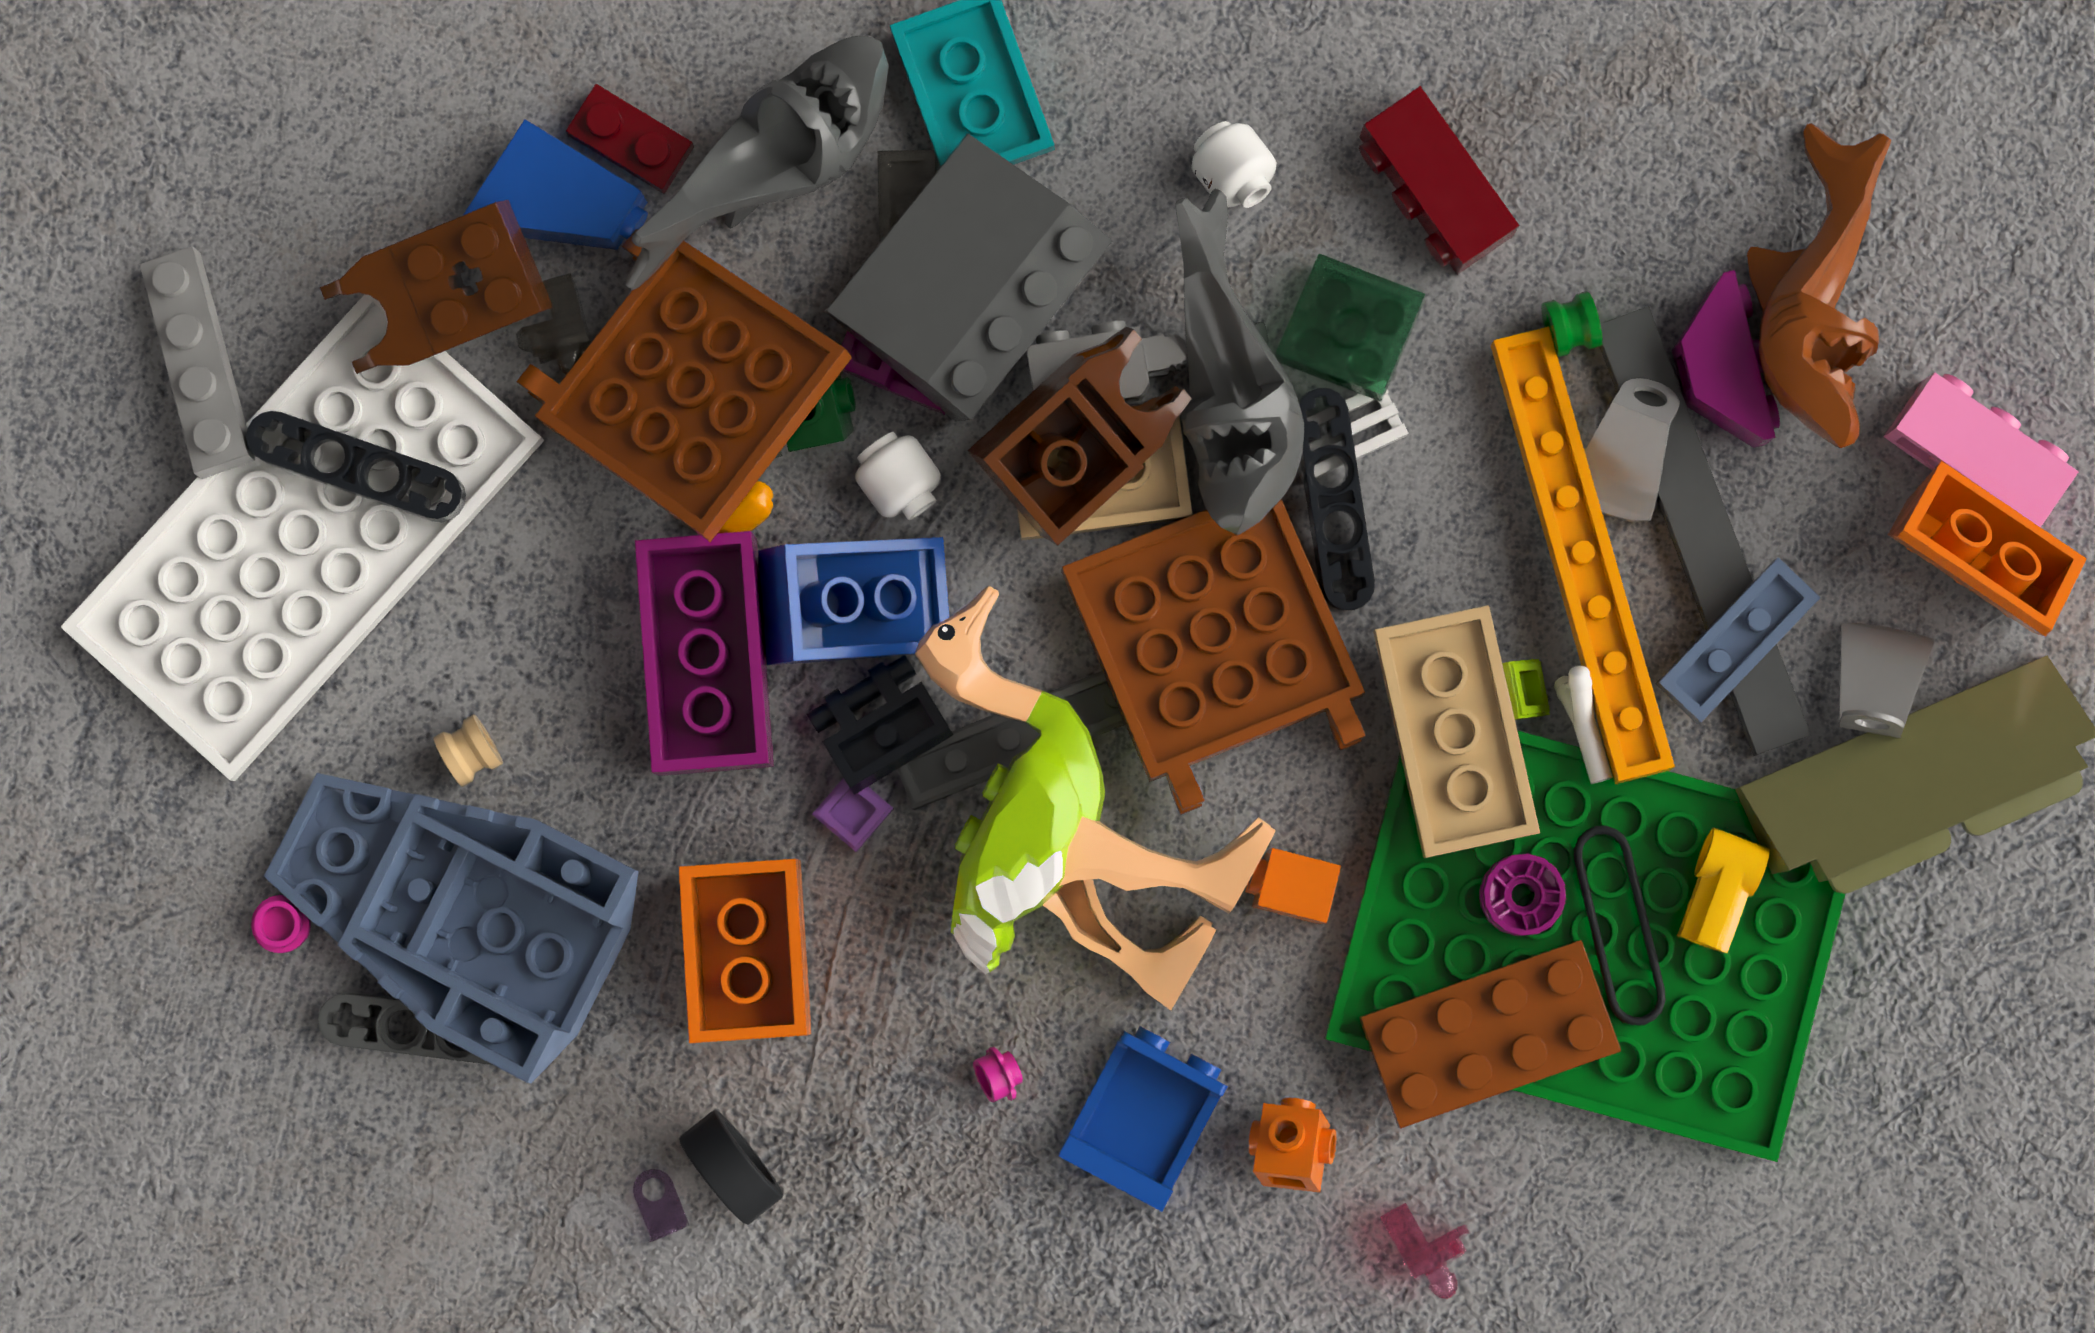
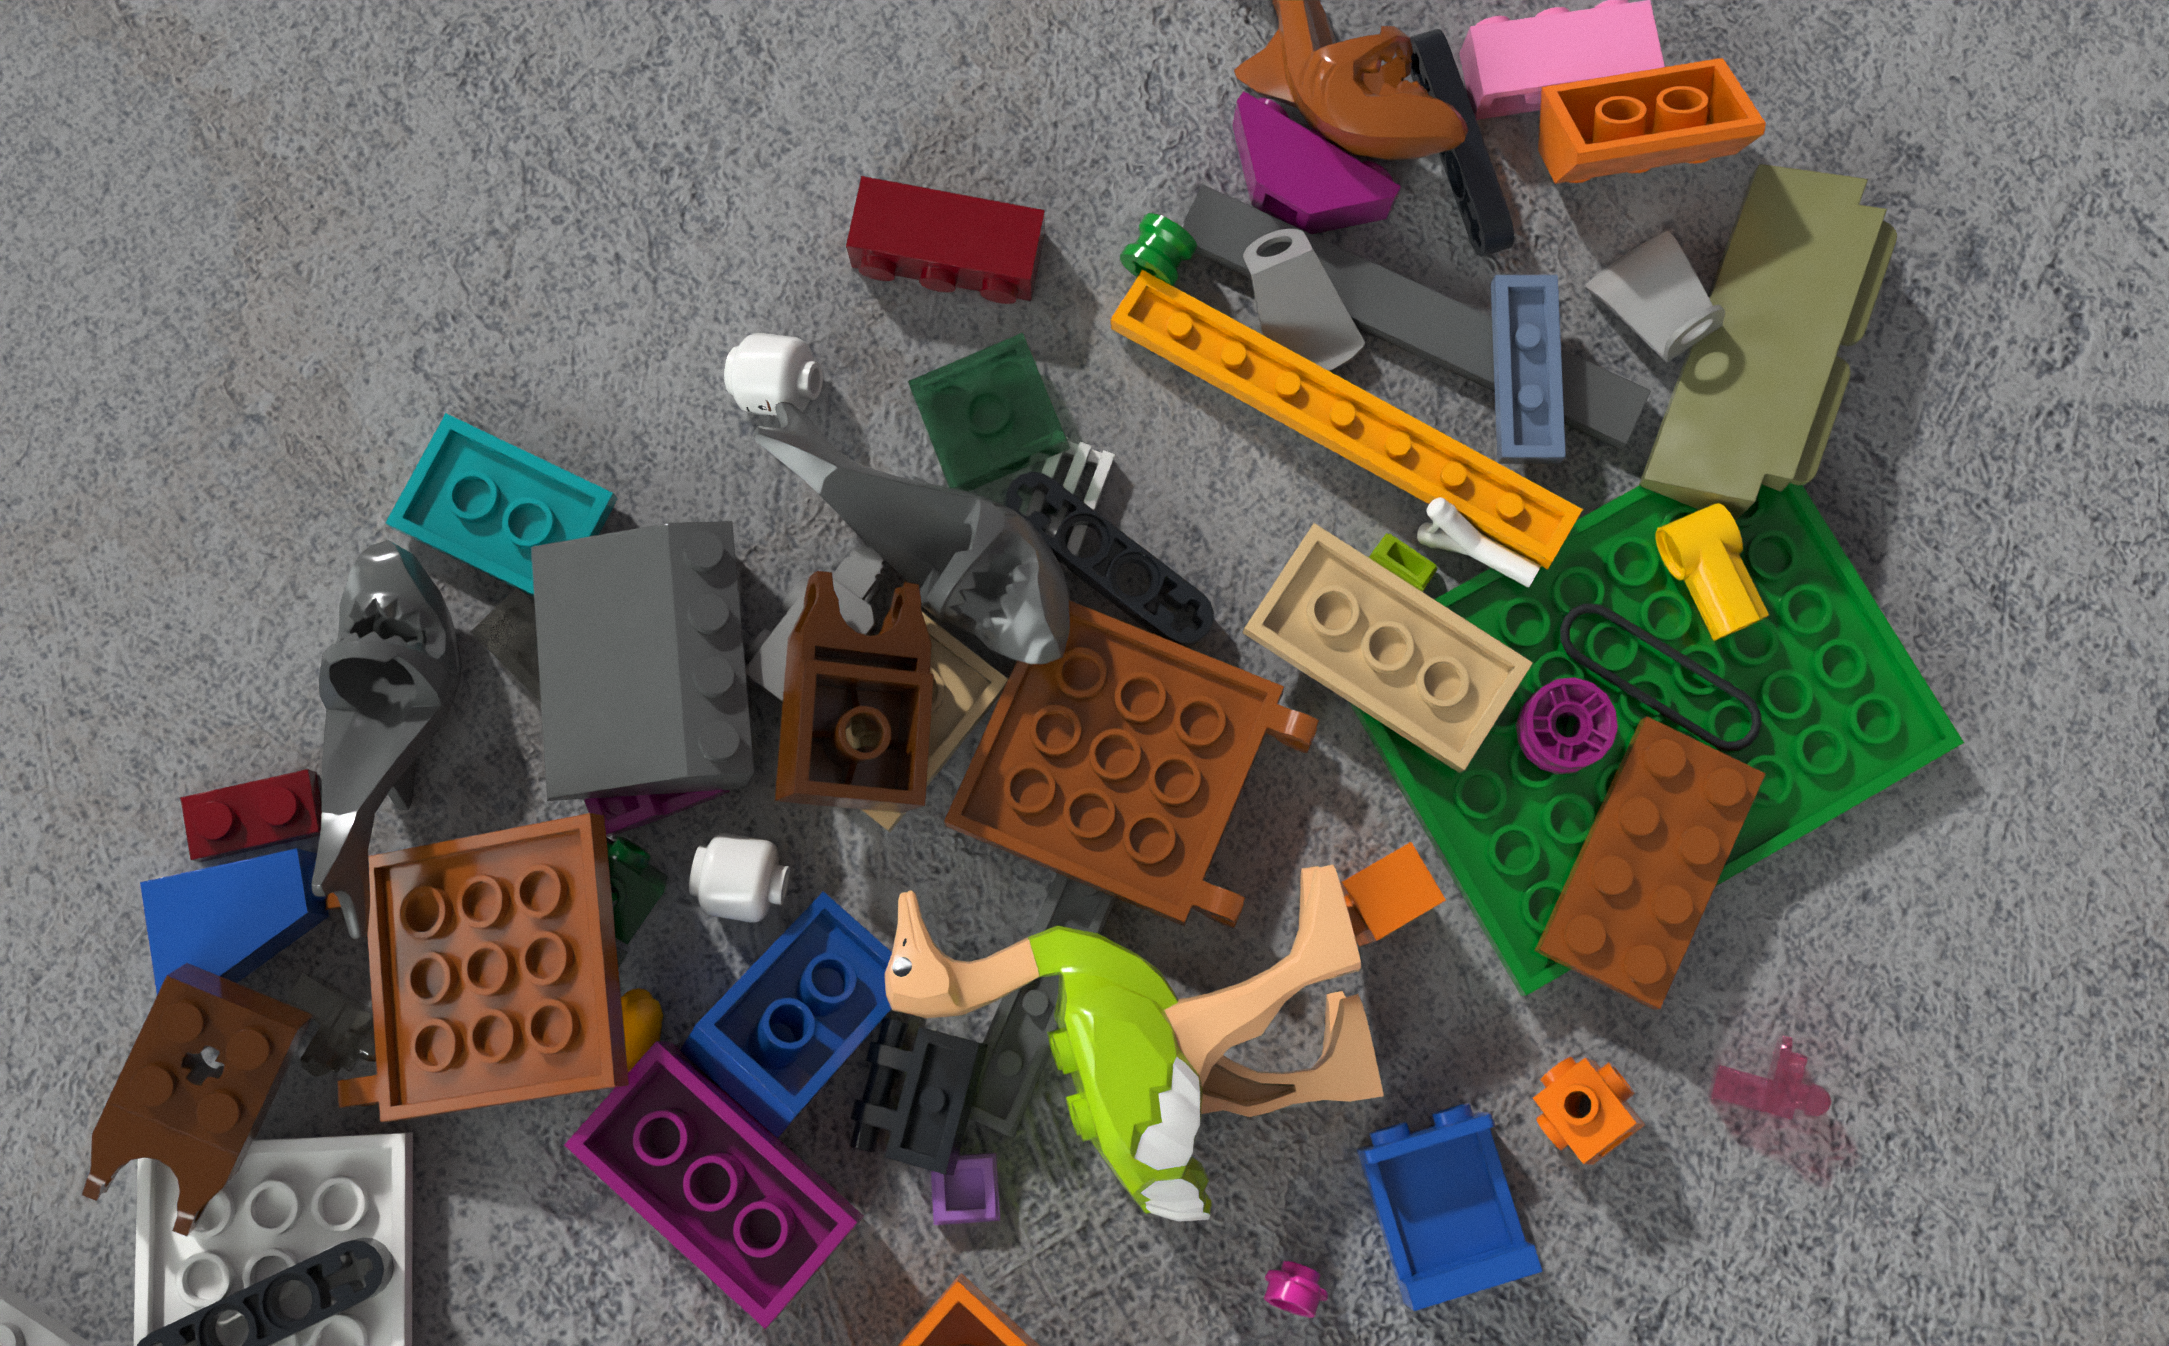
camera: 50 degrees left, 5 degrees down
(1845, 463) = (1469, 164): none -> black beam

